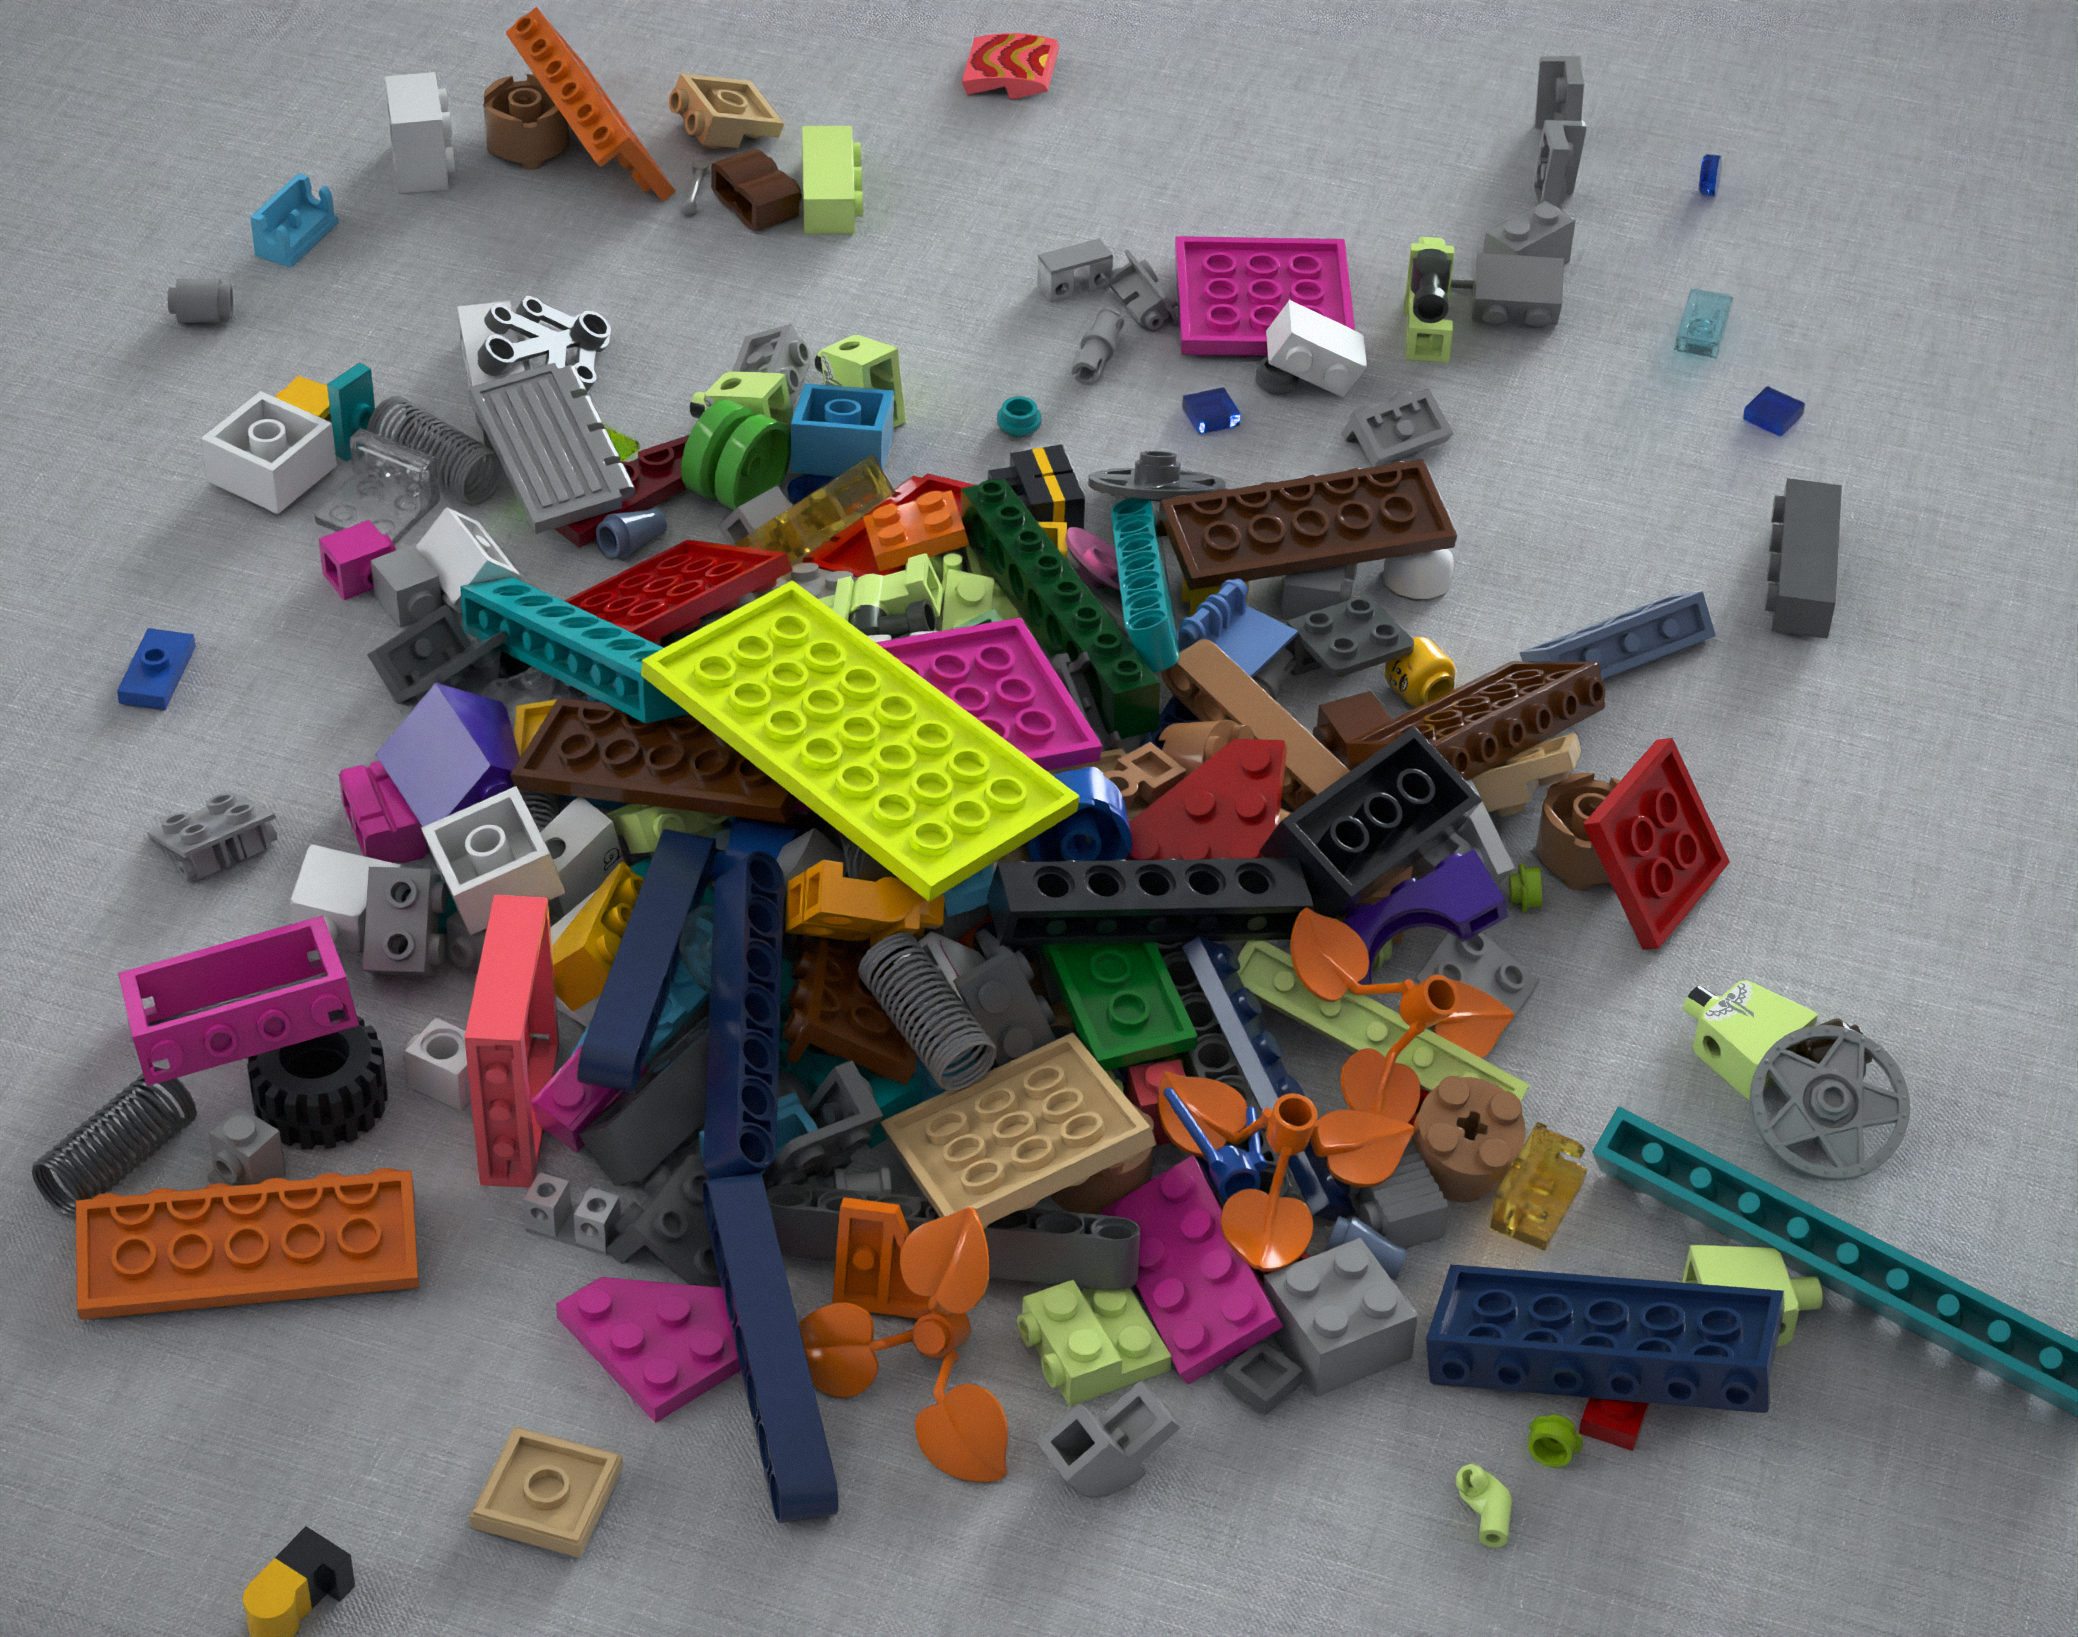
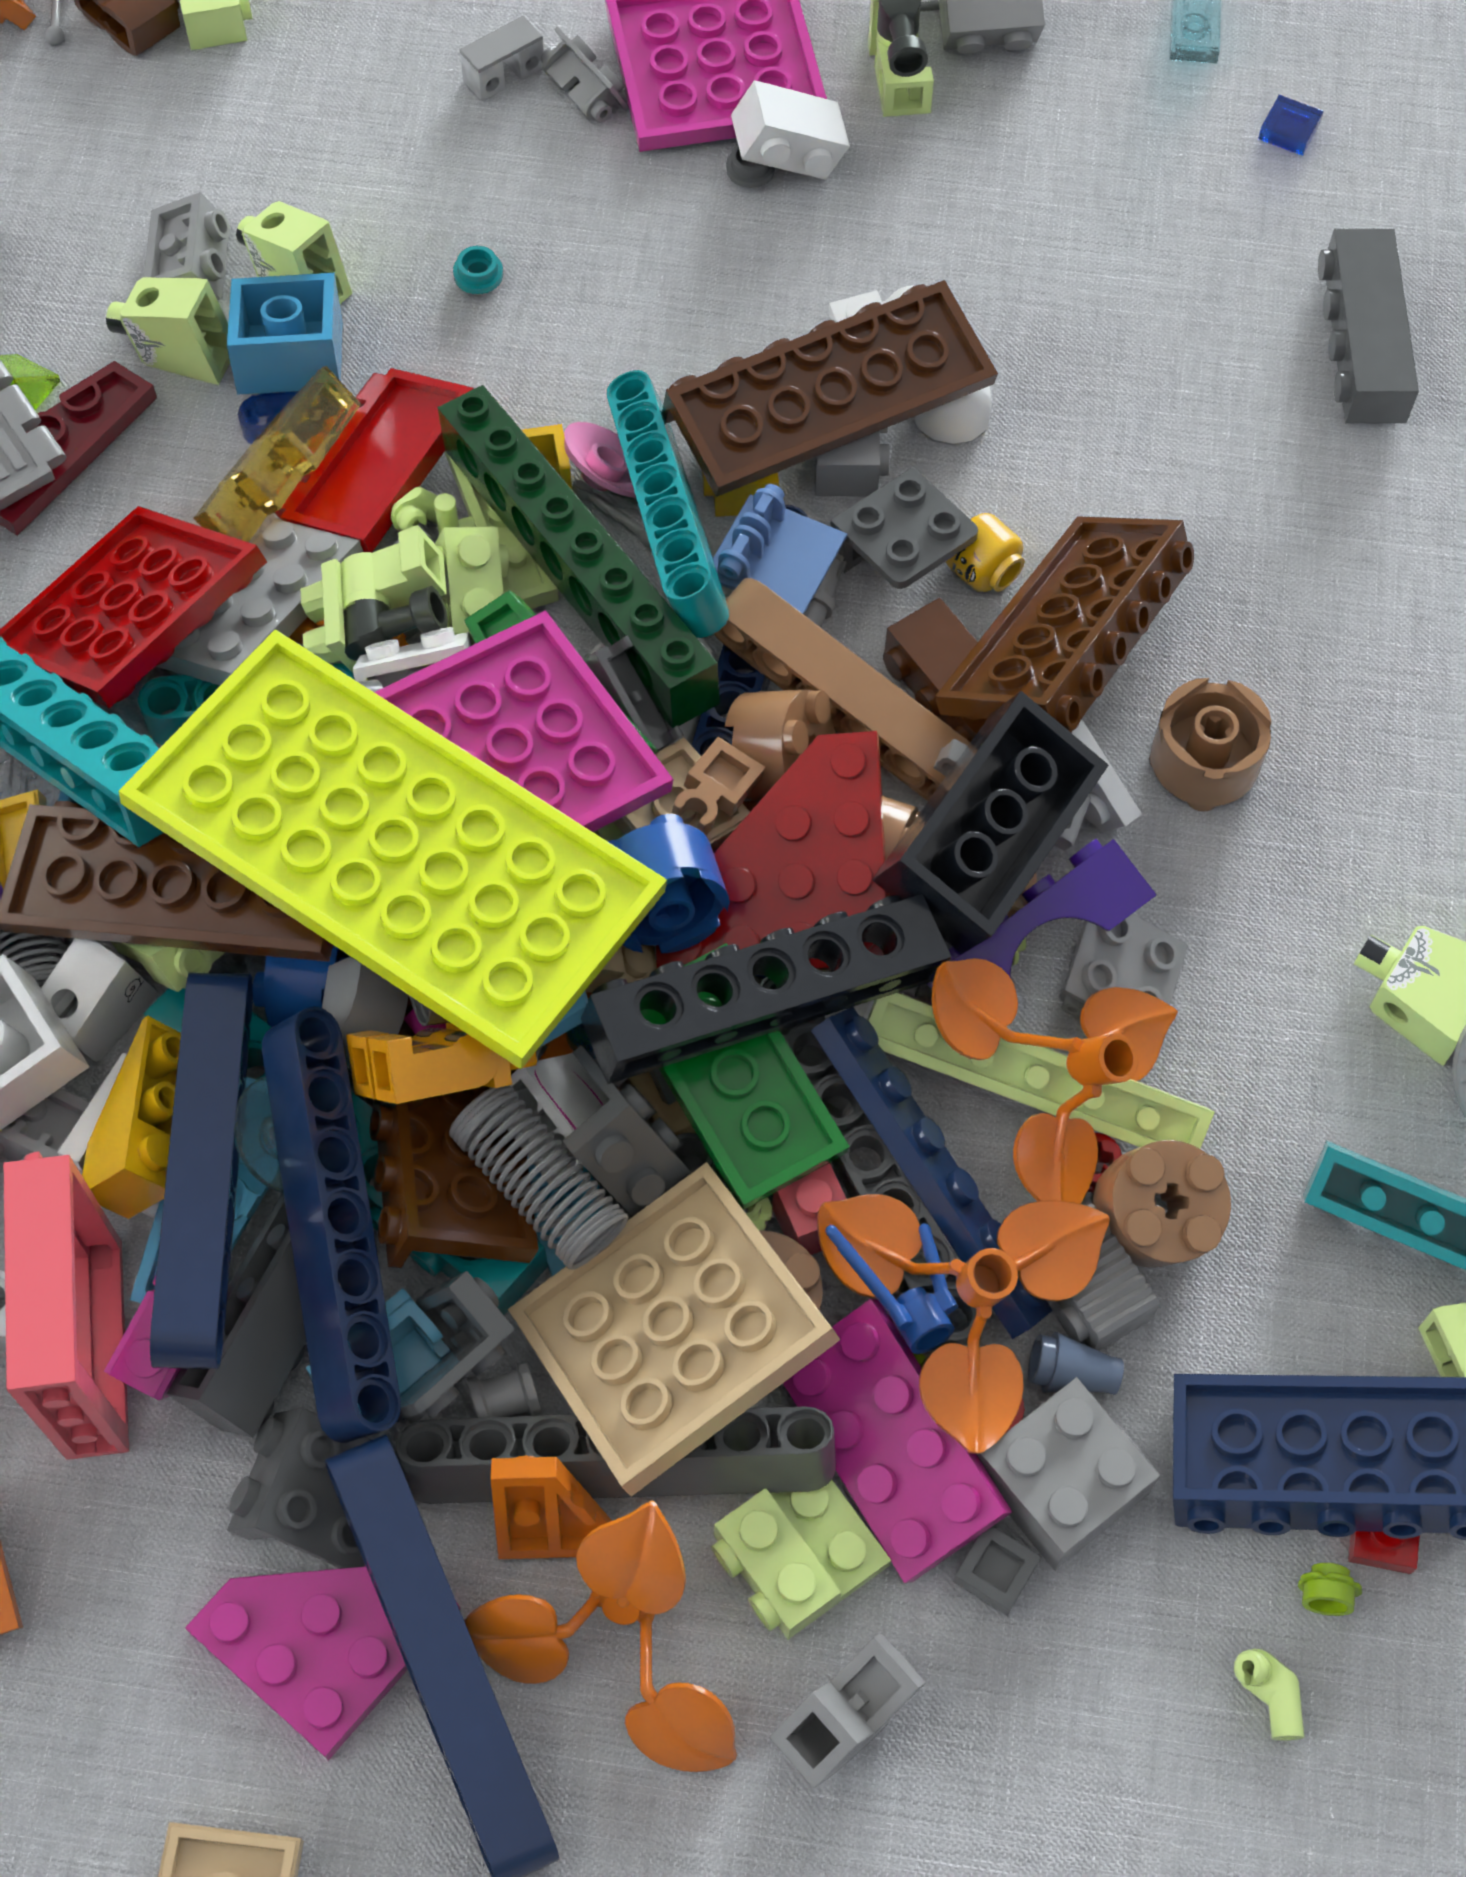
camera: 10 degrees left, 20 degrees up
(552, 1216) = (159, 1495): flat silver piece -> none
(627, 532) = (68, 508): sand blue cone -> none
(735, 454) = (172, 392): bright green wheel -> none
(753, 514) = (208, 468): light grey brick -> none
(915, 528) = (394, 462): orange plate -> none
(1045, 485) = (524, 370): black hips -> none
(1098, 346) = (547, 158): light grey pin -> none
(1154, 478) = (646, 342): dark grey wheel -> none
(1211, 410) = (687, 224): clear blue tile -> none
(1398, 427) = (897, 218): light grey bracket -> none
(1516, 779) = (1150, 677): tan plate -> none
(1526, 887) = (1154, 826): lime plate -> none
(1538, 1188) = (1246, 1258): clear yellow hinge -> none
(1632, 636) = (1194, 462): sand blue fence -> none
(1656, 843) = (1294, 761): red plate -> none

